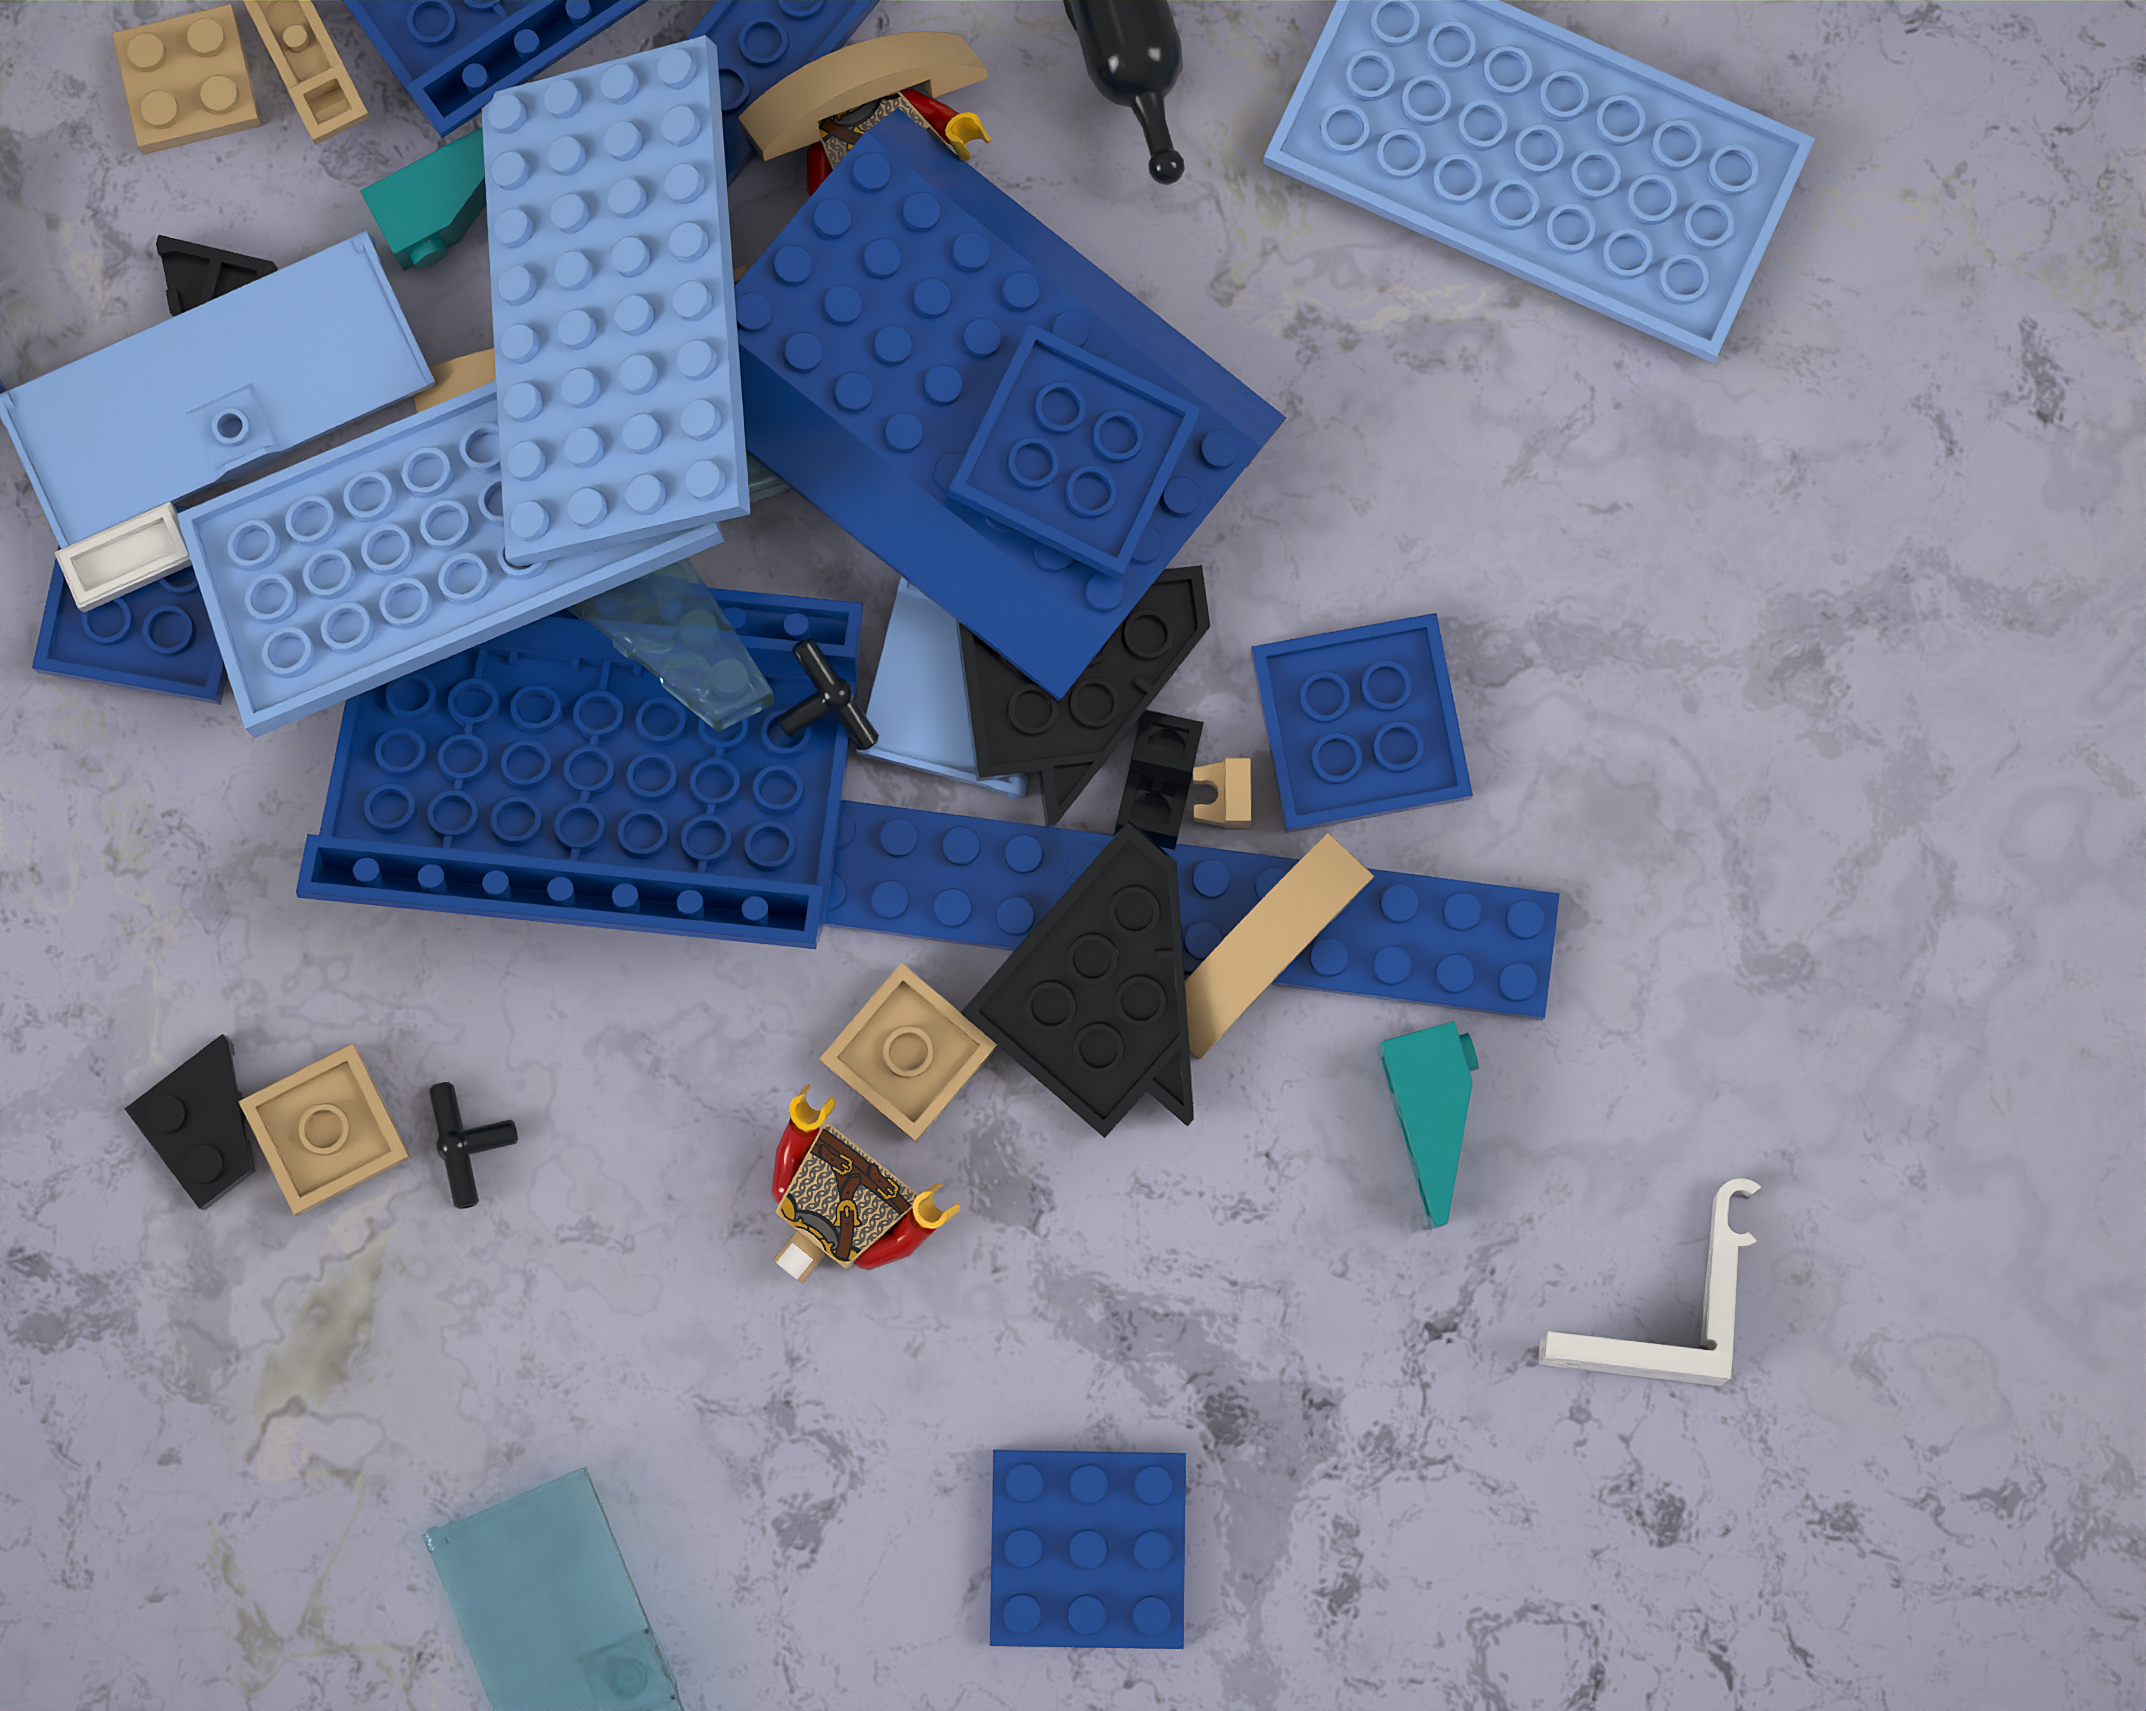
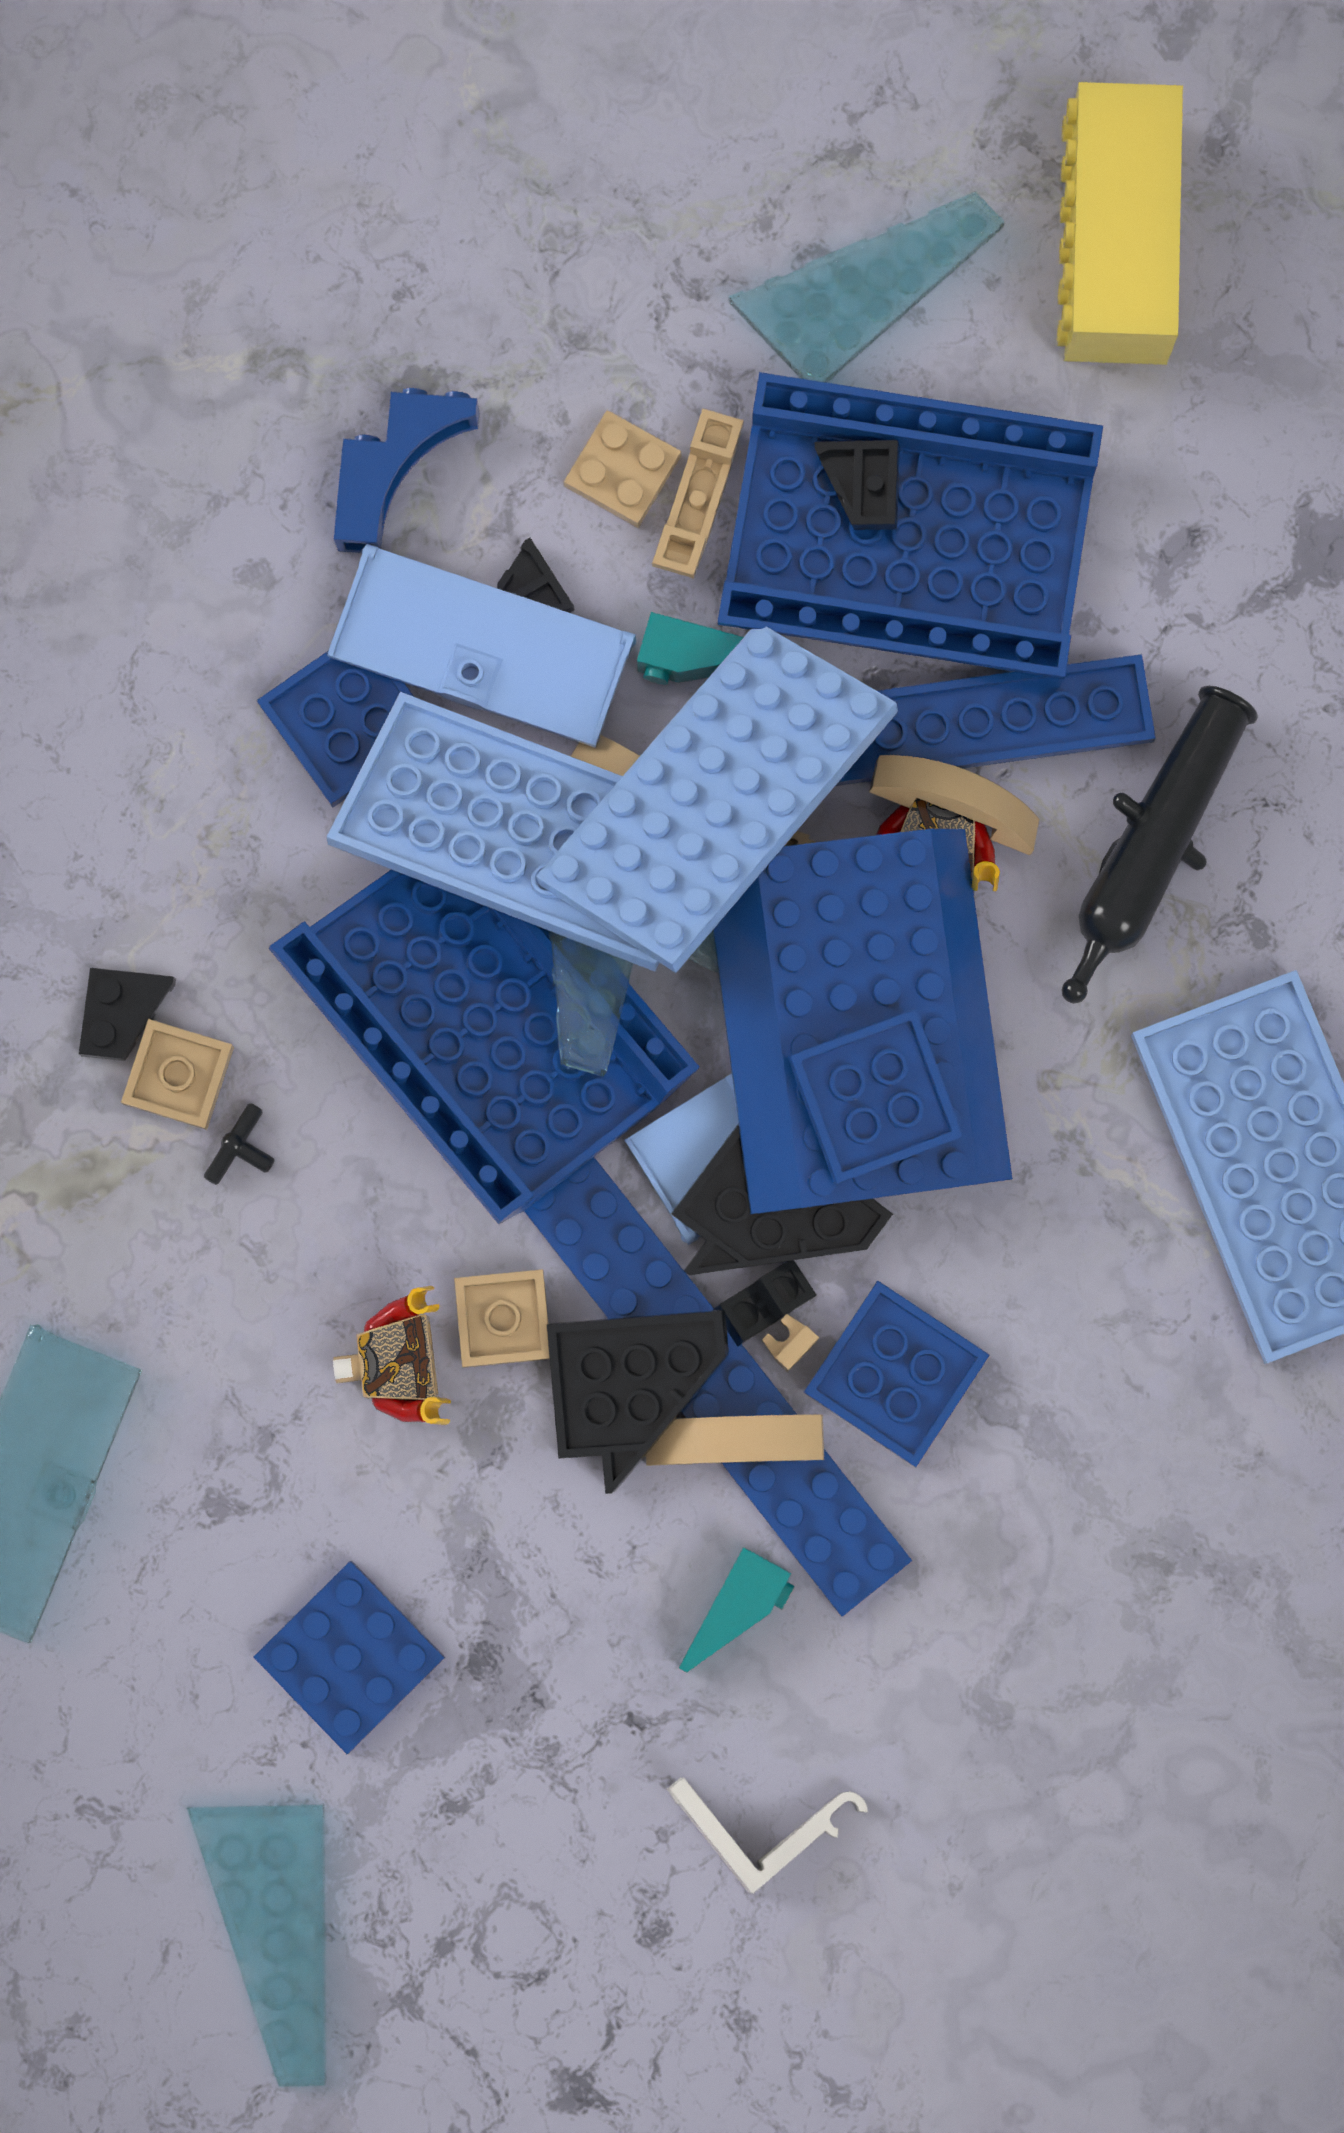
camera: 45 degrees right, 0 degrees up
(124, 557) = (354, 688): white tile -> none
(833, 696) = (637, 1100): black piece -> none

